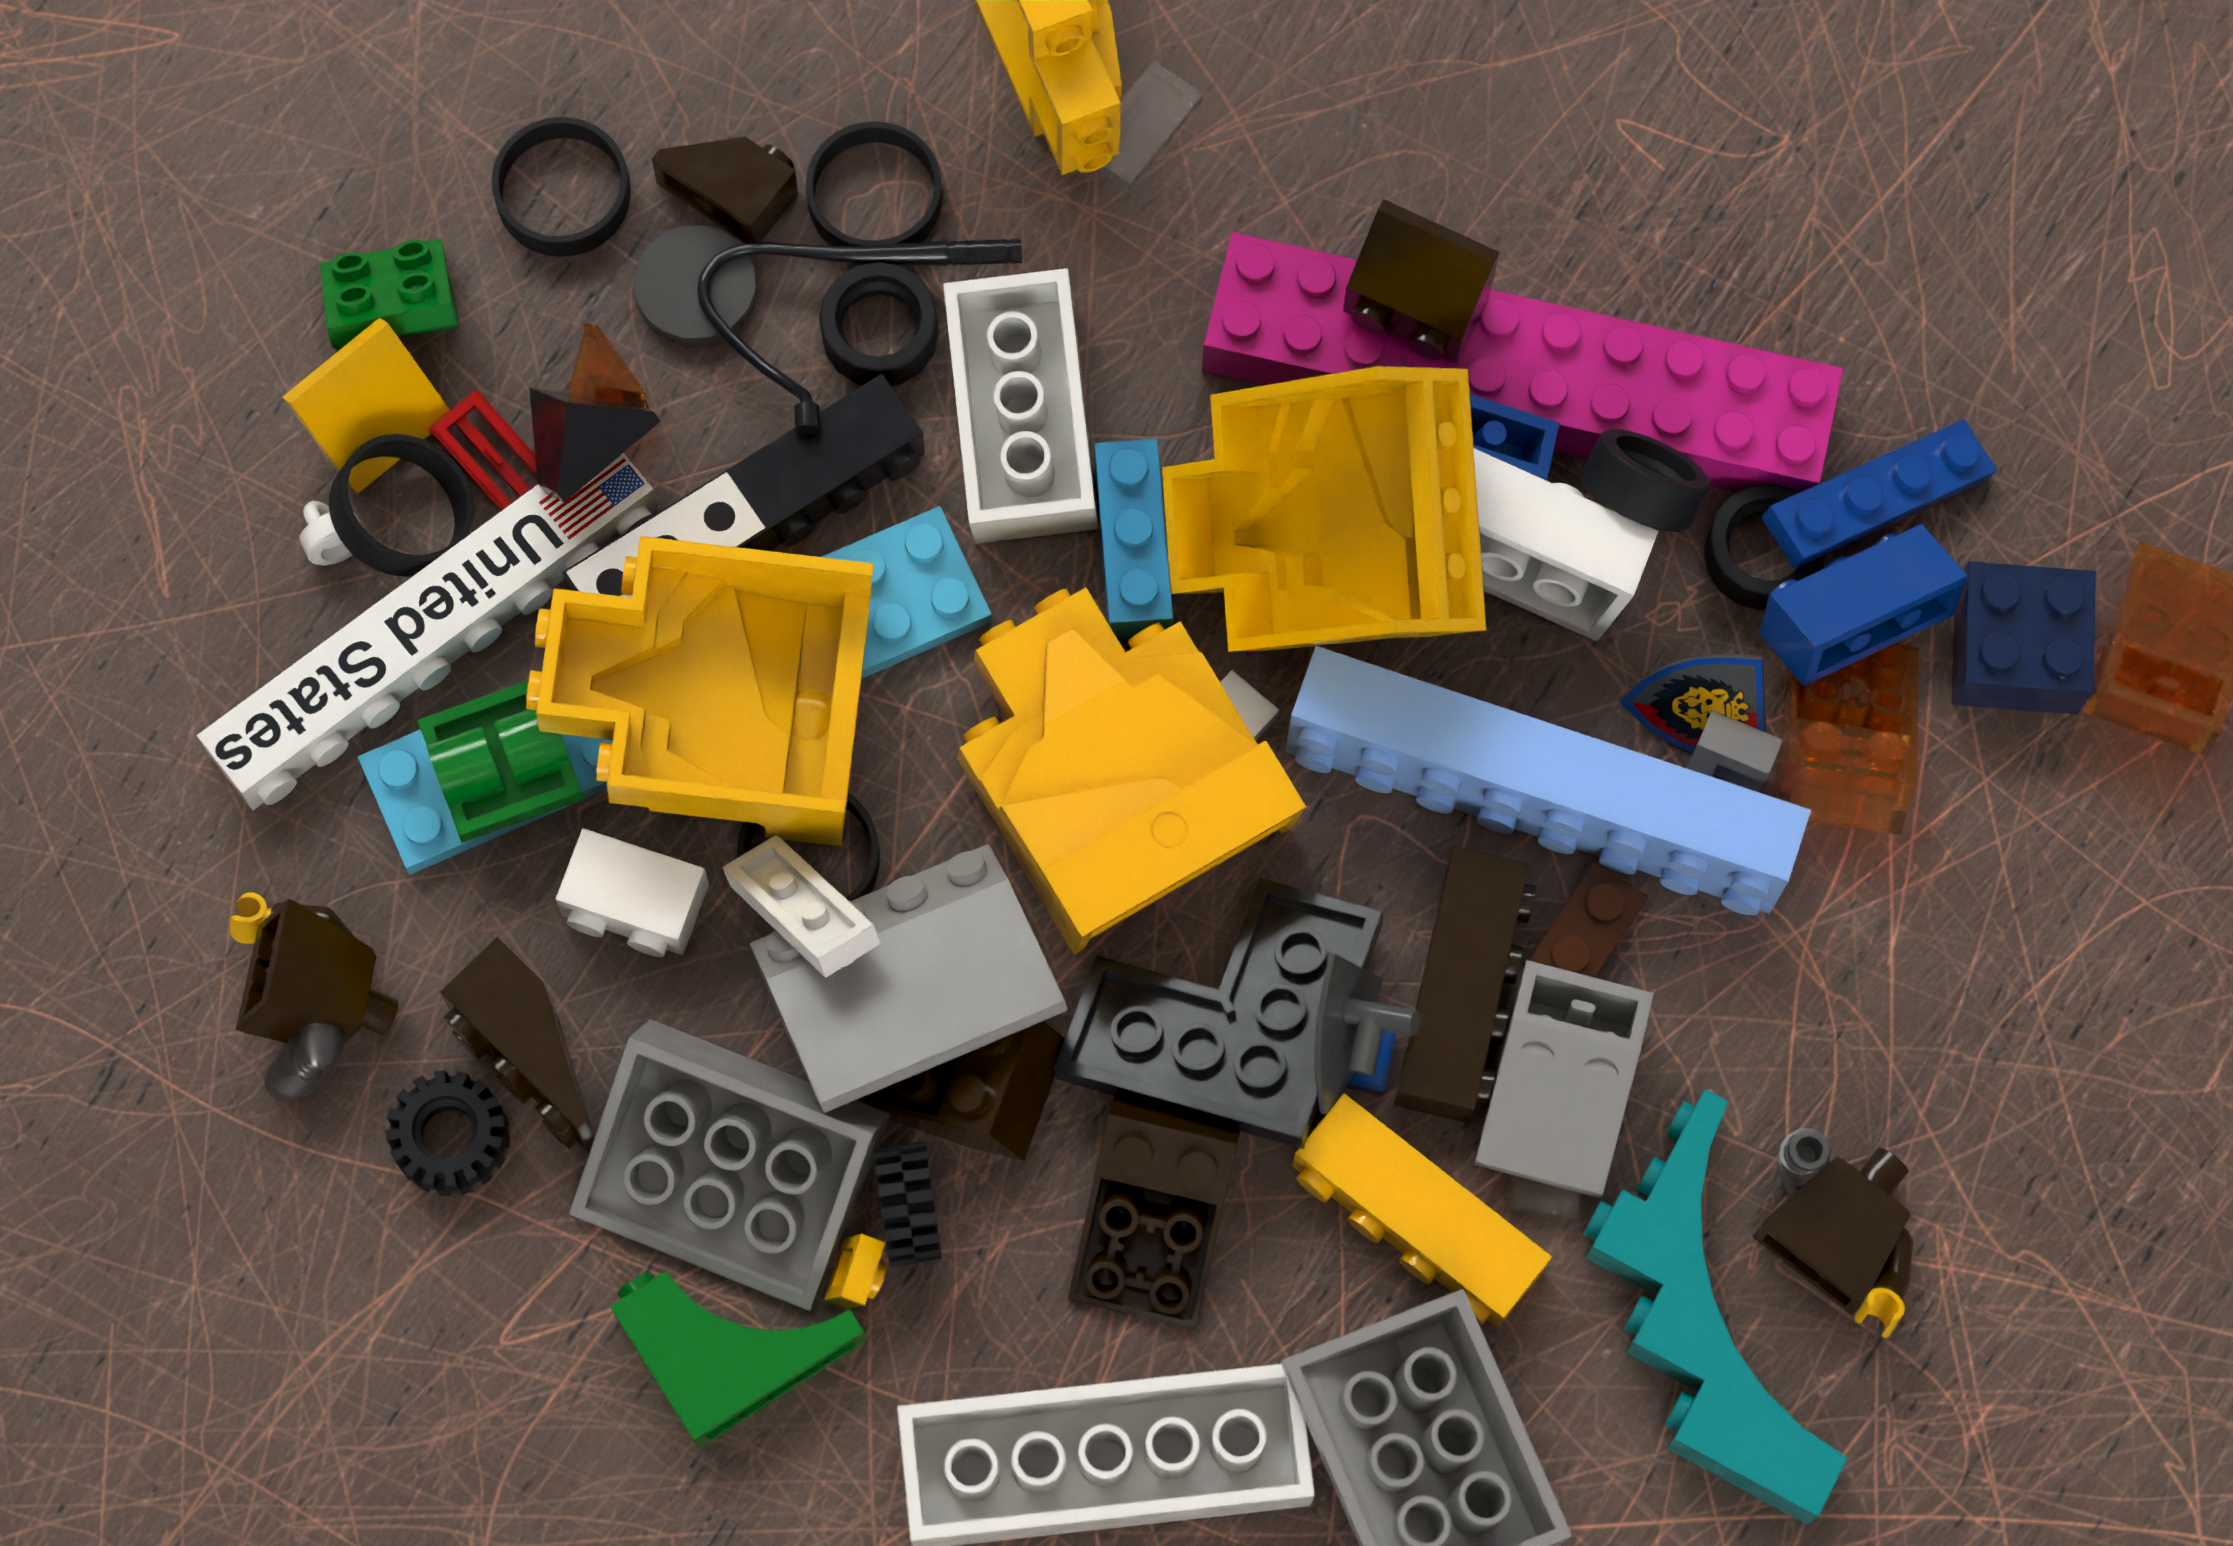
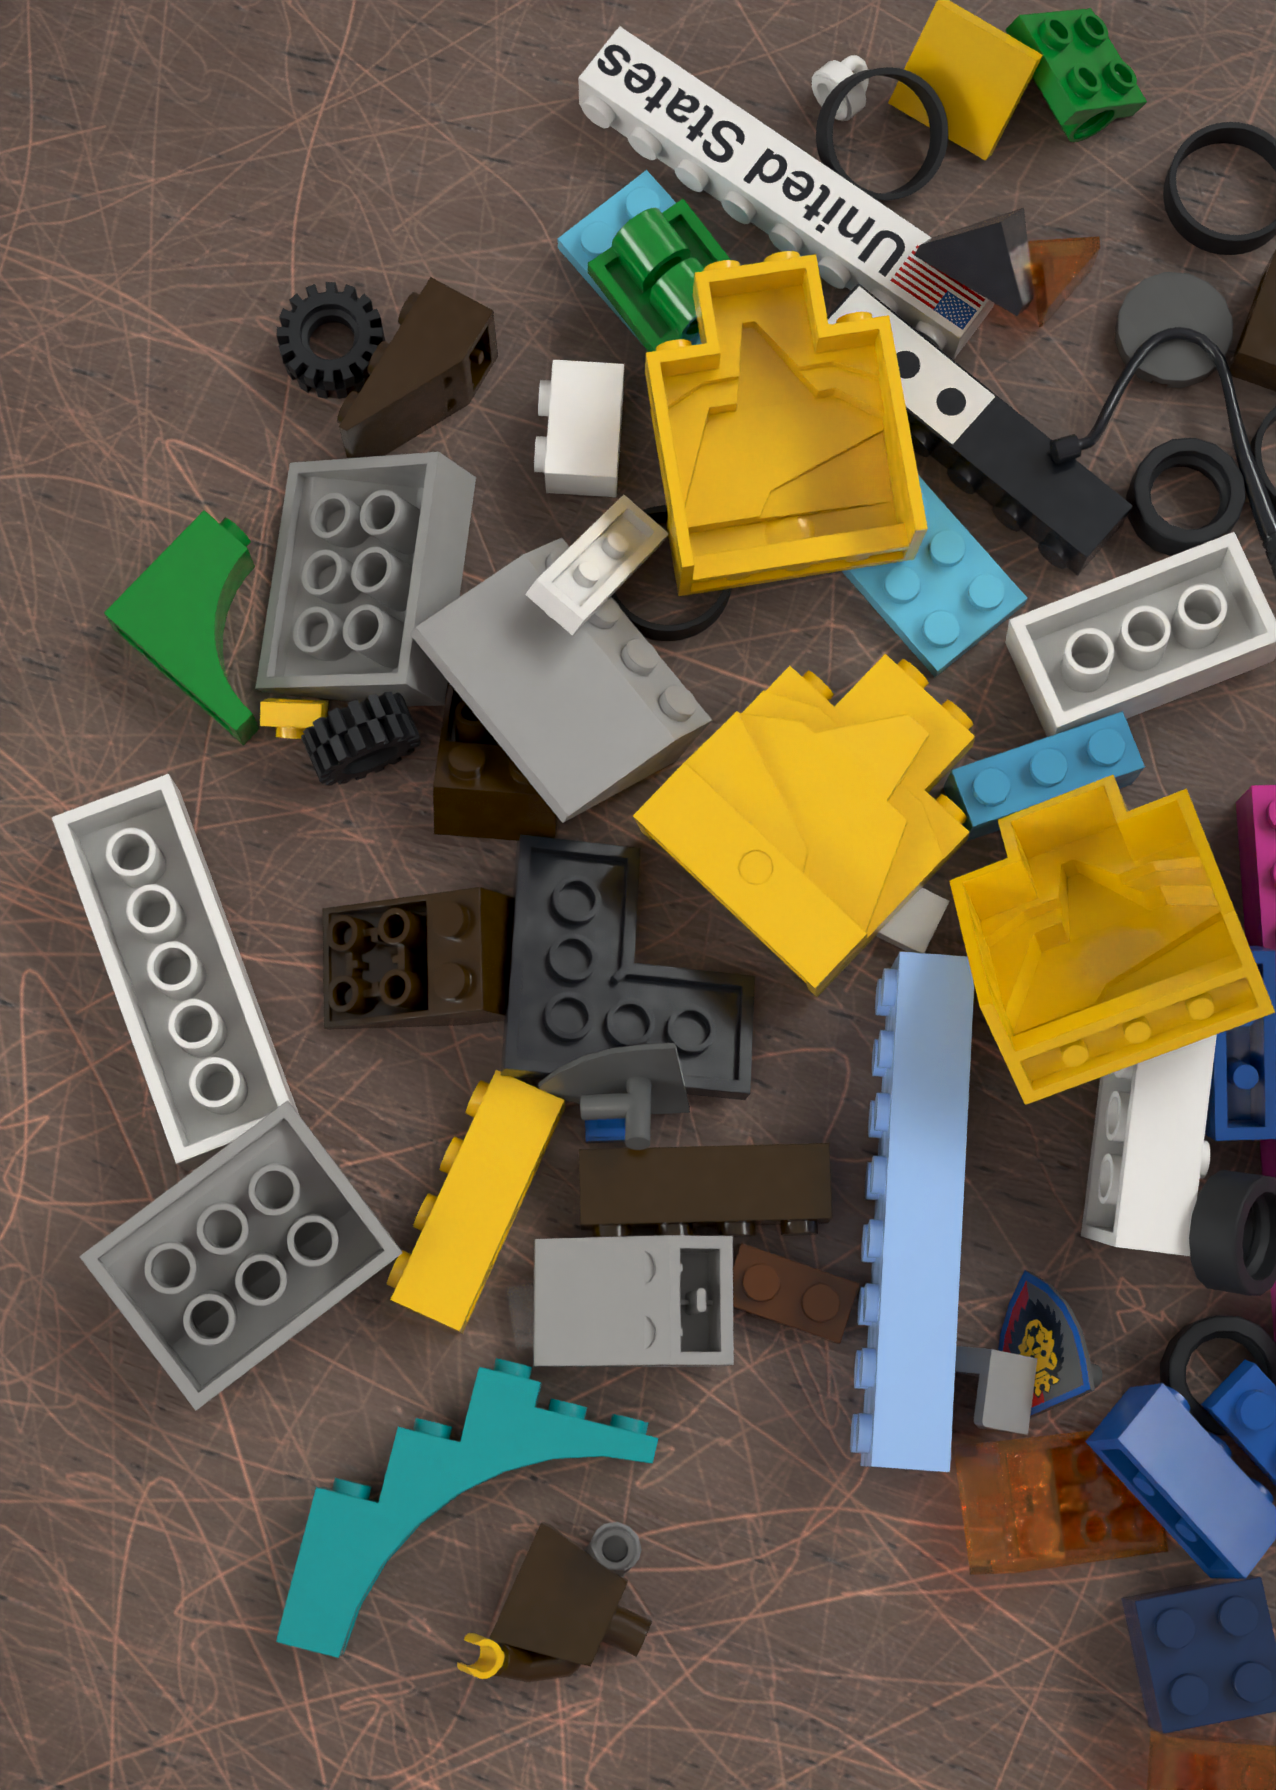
camera: 75 degrees right, 5 degrees up
(305, 989) = (422, 183): dark brown torso -> none
(473, 471) = (983, 162): red tile -> none

